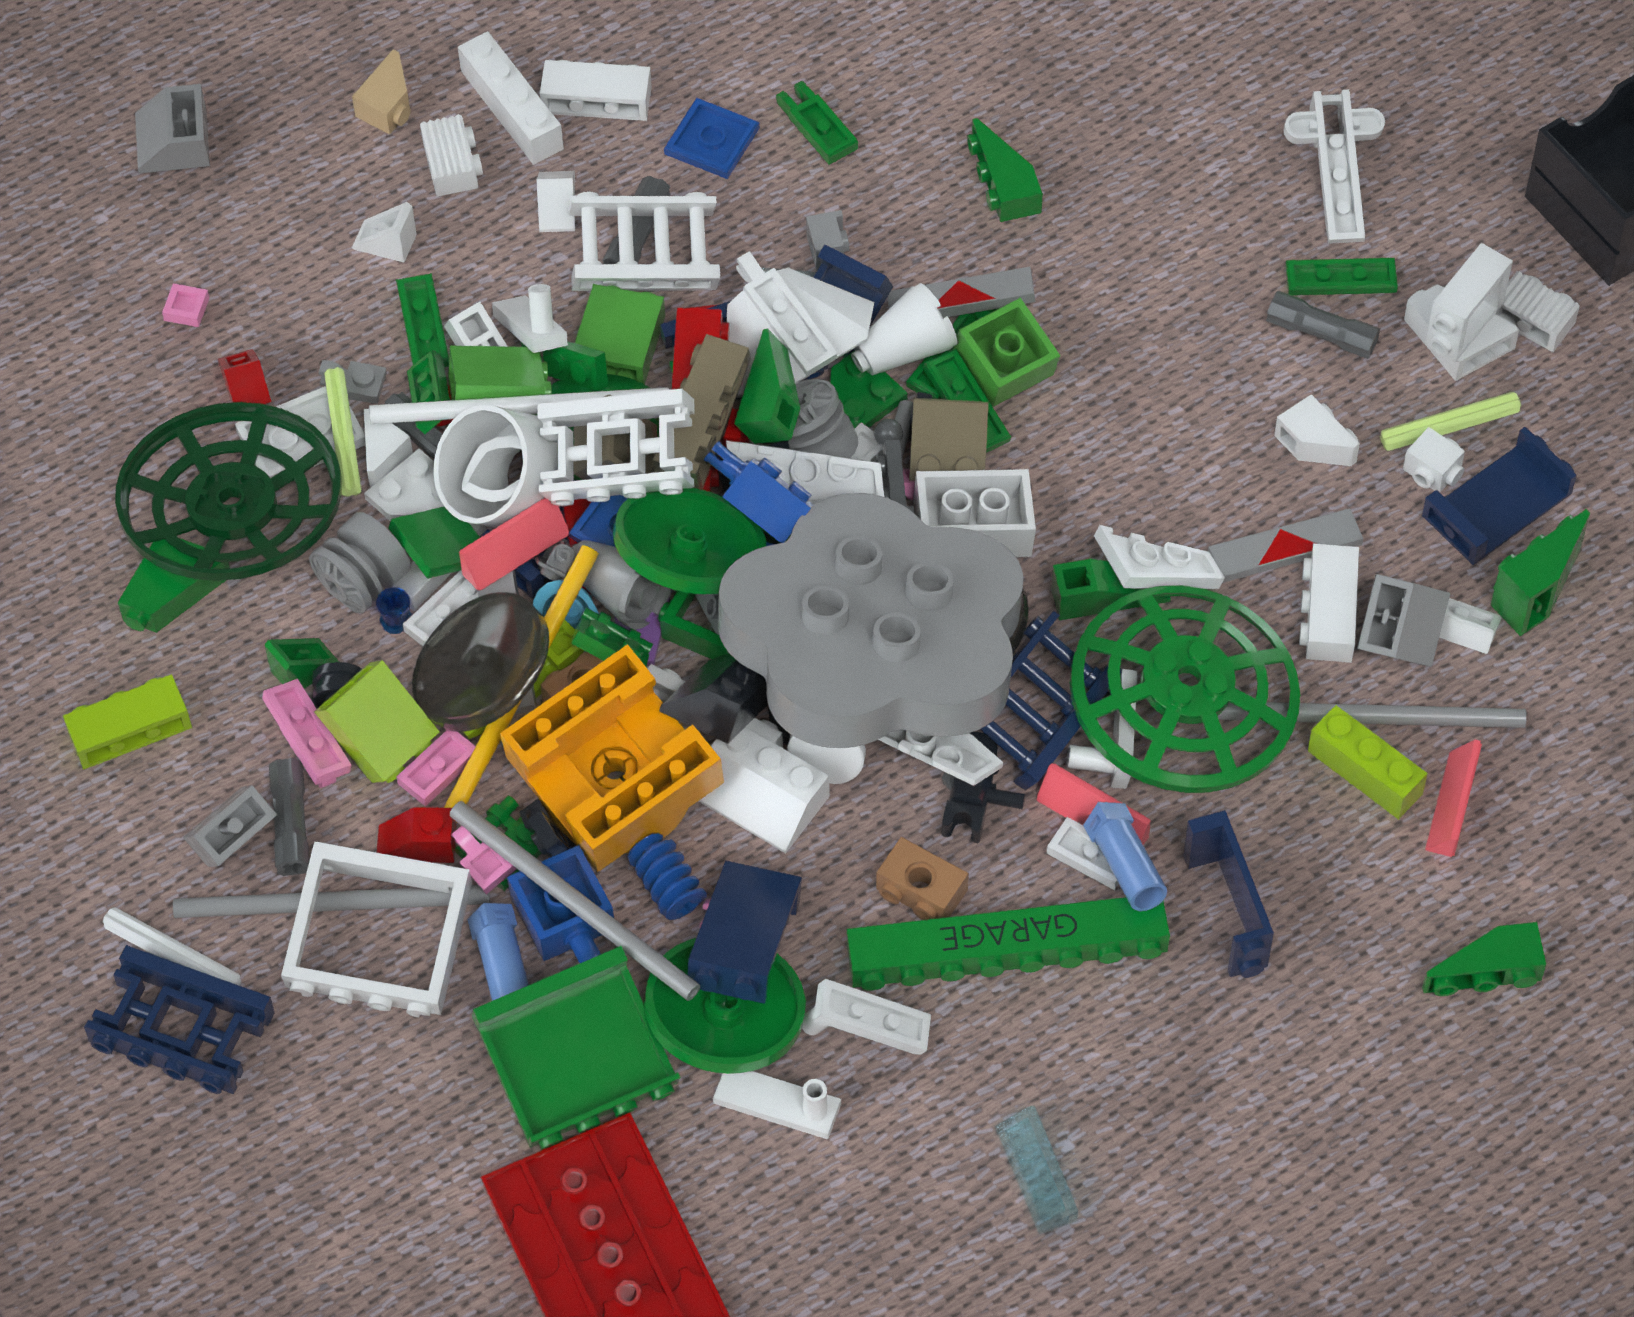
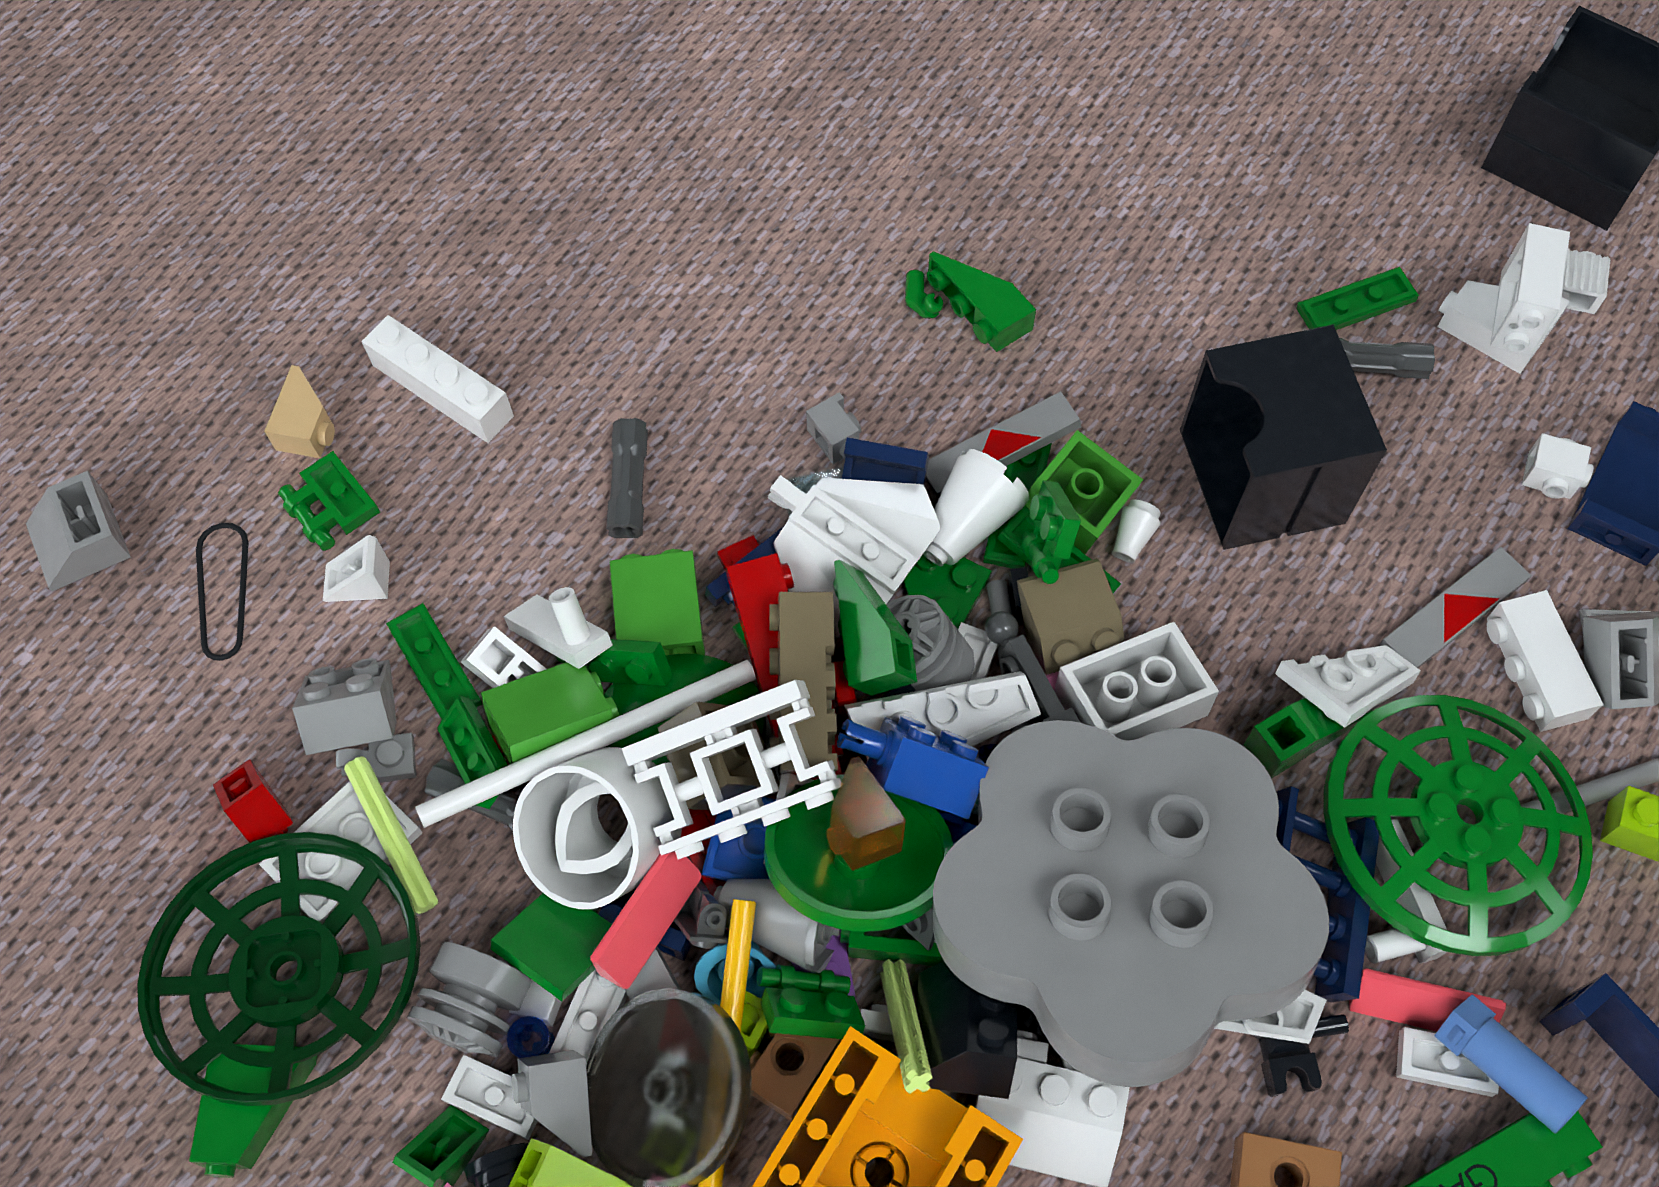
camera: 20 degrees left, 5 degrees up
(185, 305) = (154, 733): bright pink plate -> none
(289, 221) = (242, 593): none -> black piece
(342, 330) = (346, 706): none -> light grey slope
(352, 638) = (489, 1096): none -> white plate
(385, 448) = (446, 840): white slope -> none
(395, 168) = (338, 492): none -> green plate
(398, 642) = (556, 1095): none -> light grey slope
(406, 488) = (490, 875): white plate -> none
(450, 156) = (395, 463): white brick -> none
(554, 198) = (529, 476): white slope -> none
(596, 89) = (525, 341): white brick -> none
(627, 273) = (640, 534): white fence -> none
(675, 675) = (905, 1027): none -> yellowish green axle
(698, 514) = (864, 819): none -> clear orange slope
(712, 138) = (665, 356): blue tile -> none
(818, 123) = (769, 306): green hinge -> none
(951, 156) = (917, 299): none -> green arm
(953, 365) = (1053, 533): none -> green plate
(1045, 397) = (1135, 529): none -> white cone
(1183, 354) = (1280, 436): none -> black piece
(1316, 435) = (1429, 478): white slope -> none
(1337, 159) = (1286, 155): white piece -> none
(1451, 420) = (1542, 418): yellowish green axle -> none

